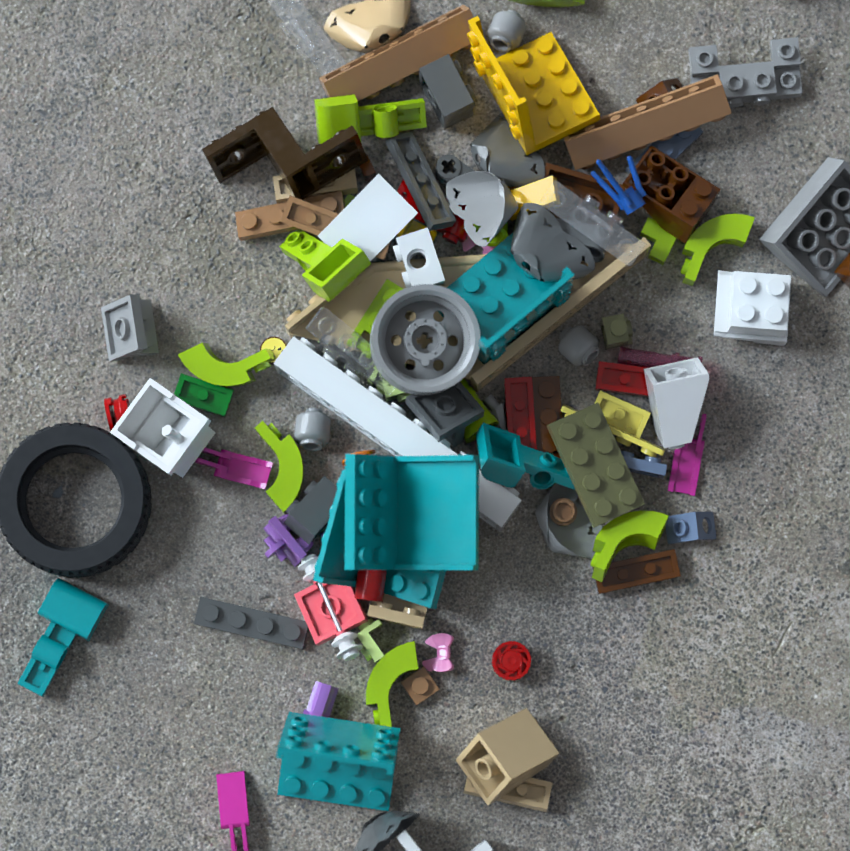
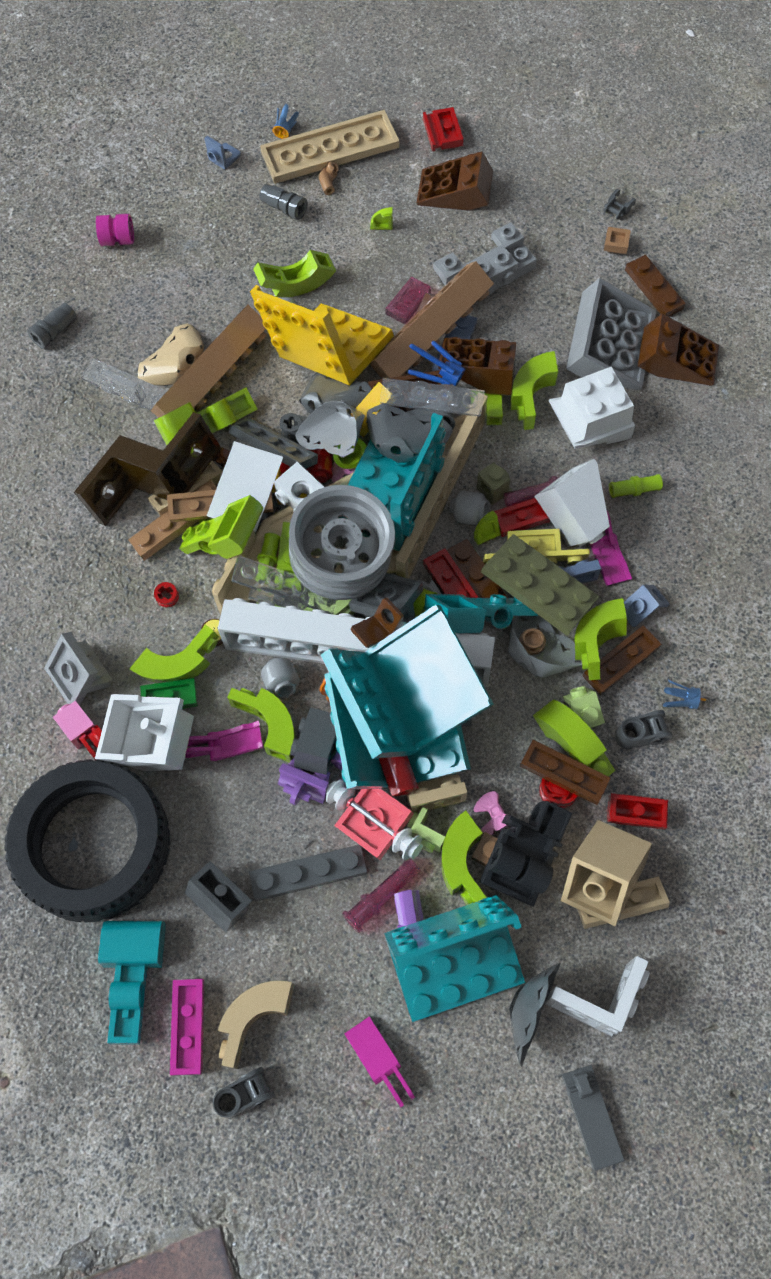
camera: 25 degrees left, 15 degrees down
(88, 703) = (187, 1027): none -> dark pink plate
(106, 380) = (73, 722): none -> bright pink brick
(111, 781) = (245, 1093): none -> dark grey piece
(144, 714) = (254, 1003): none -> tan arch
(163, 607) = (218, 896): none -> dark grey brick
(241, 295) = (168, 587): none -> red bush
(291, 679) = (371, 903): none -> clear pink pin
(355, 308) = (269, 549): none -> lime axle
(417, 438) = (377, 627): none -> reddish brown bracket
(445, 705) = (525, 853): none -> black plate
(446, 91) = (260, 371): dark grey brick -> none
(519, 652) = (565, 772): none -> reddish brown plate
(547, 626) = (574, 736): none -> lime arch
(567, 717) = (637, 811): none -> red brick
(575, 599) = (585, 705): none -> yellowish green bracket
(583, 375) = (487, 528): none -> lime tile
(618, 648) = (648, 728): none -> dark grey piece
(643, 74) = (407, 300): none -> clear pink plate
(672, 634) = (691, 695): none -> flat silver piece
(753, 402) = (635, 486): none -> lime pin

